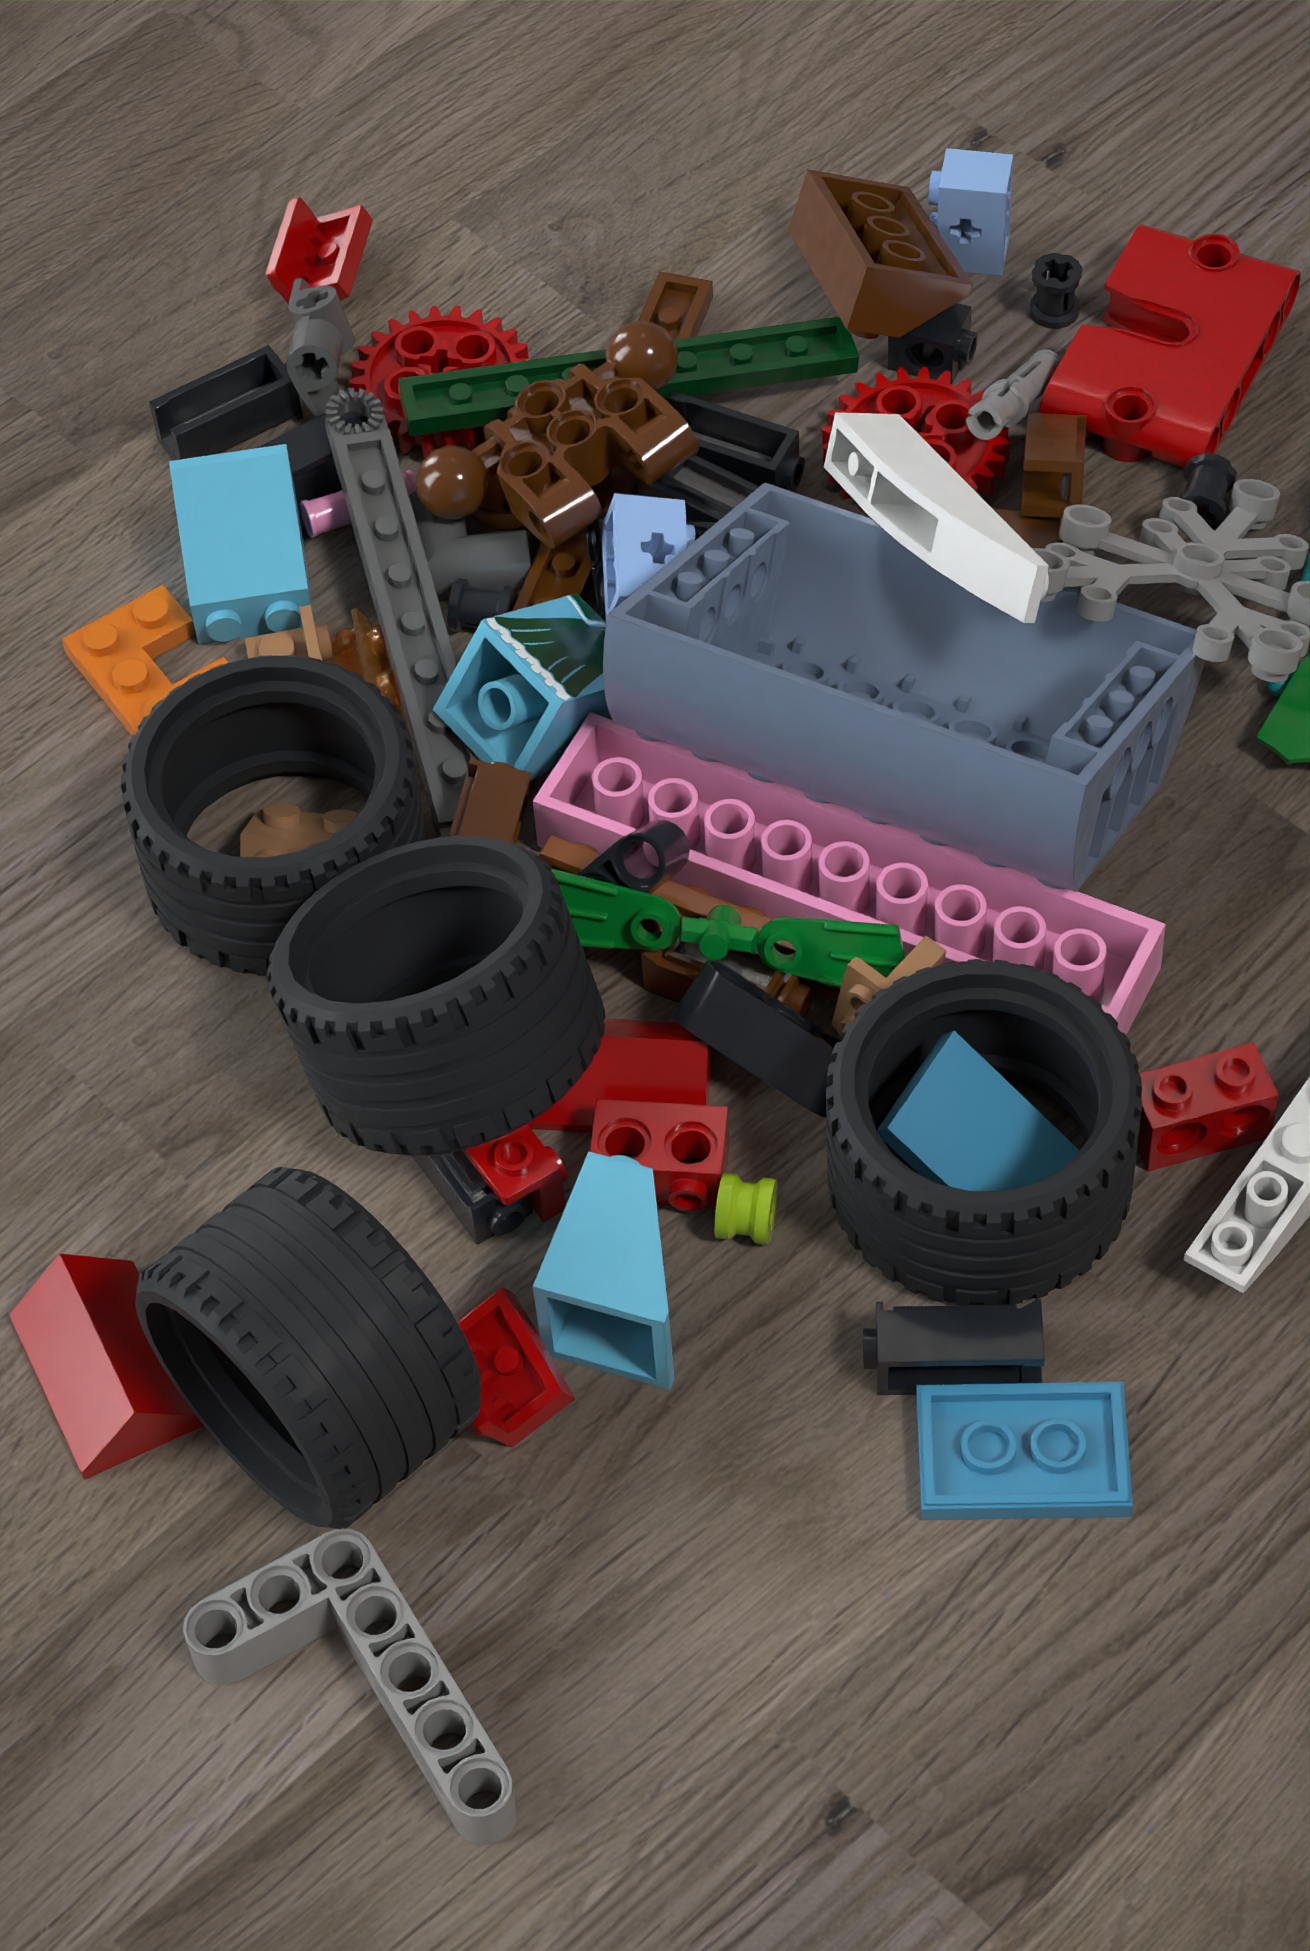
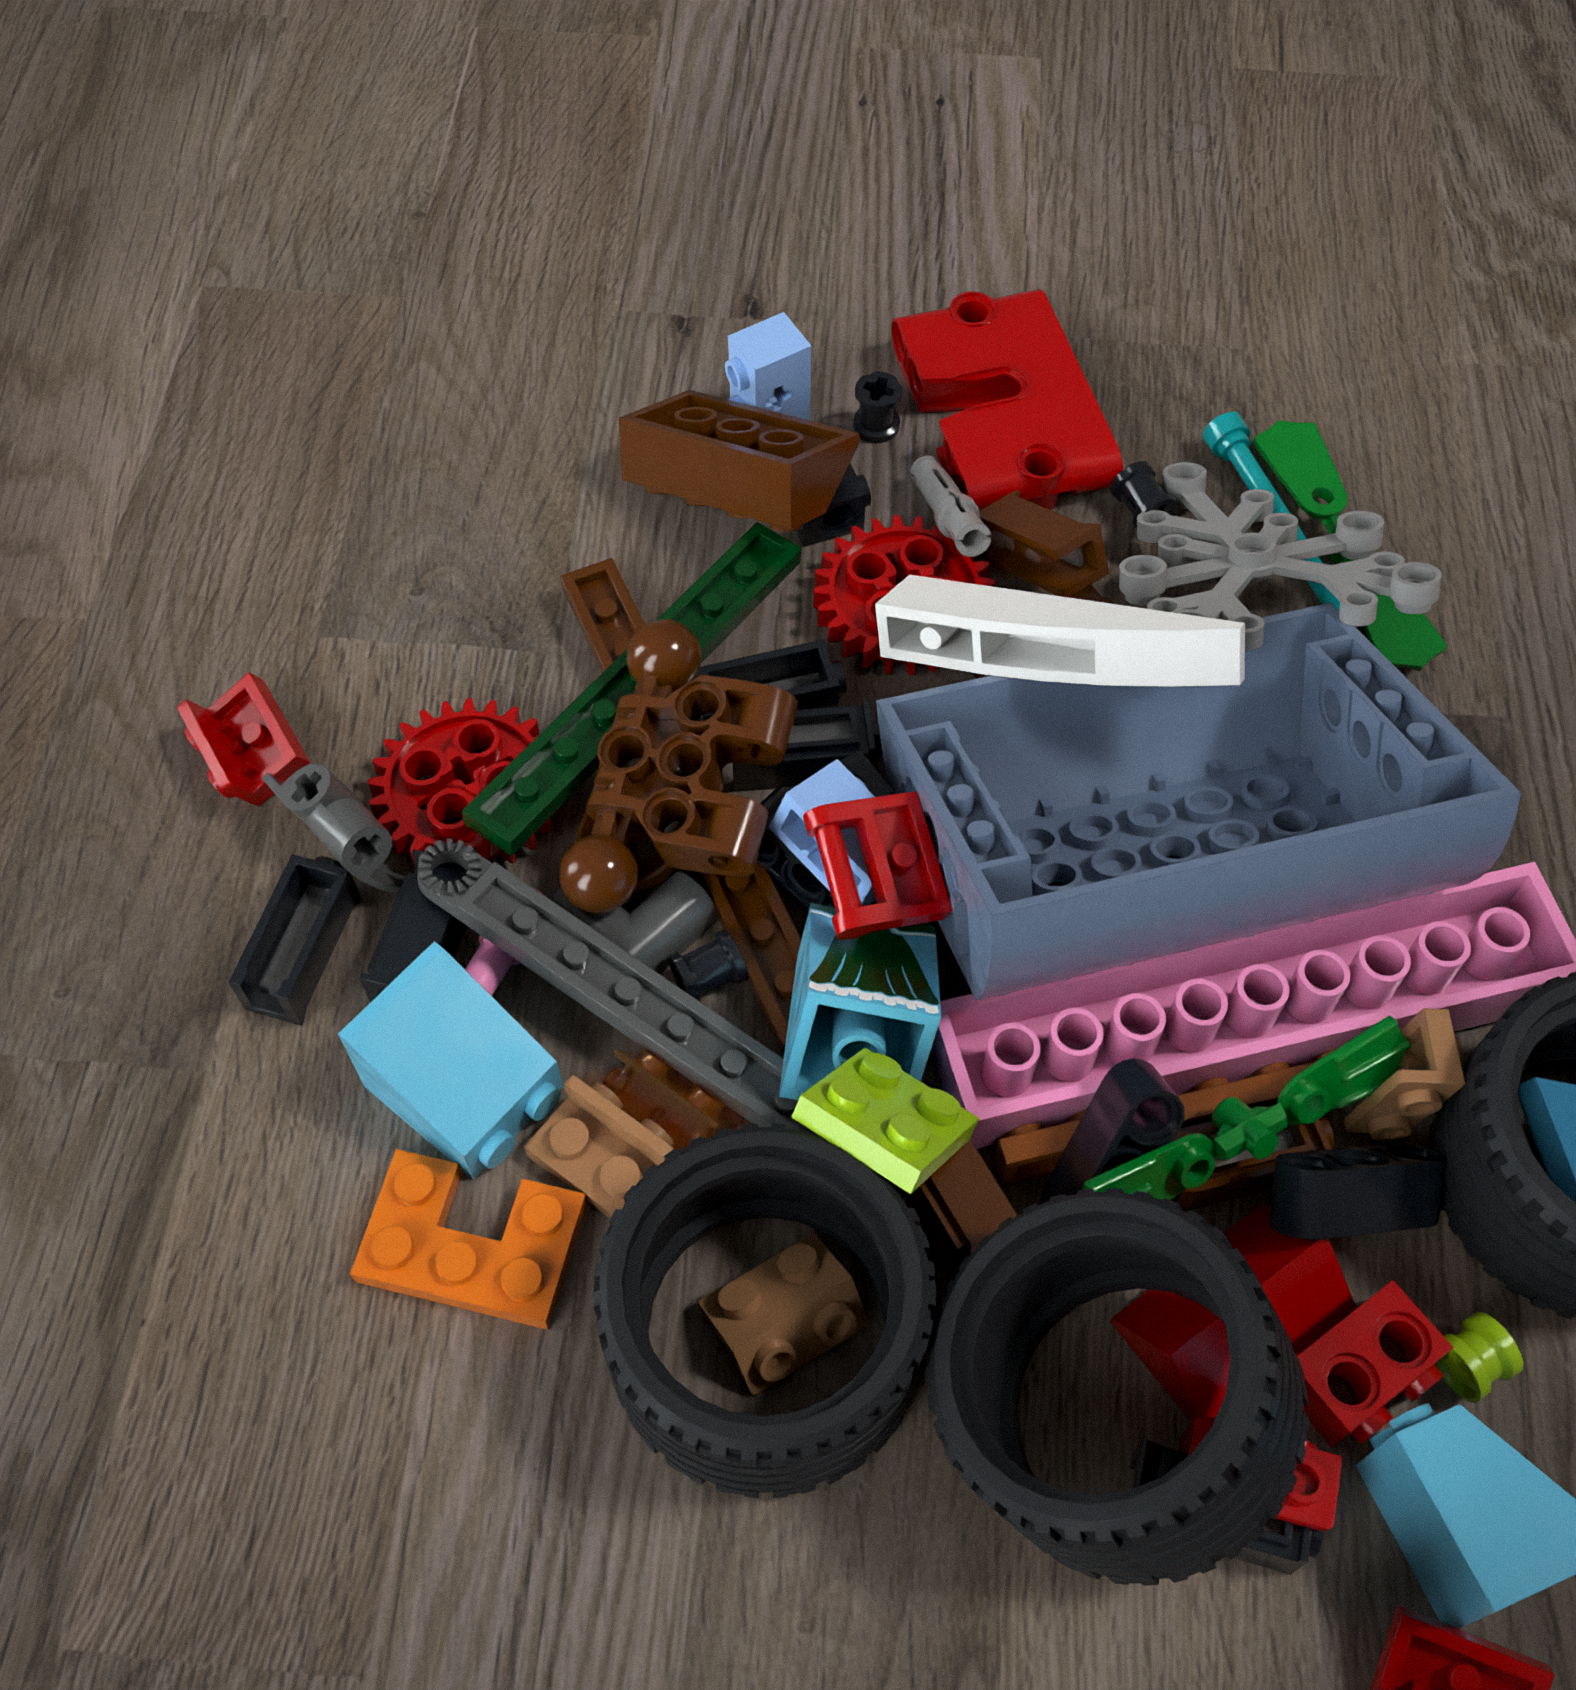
camera: 45 degrees left, 5 degrees up
(456, 737) = (886, 1118): none -> lime plate
(651, 552) = (897, 859): none -> red plate

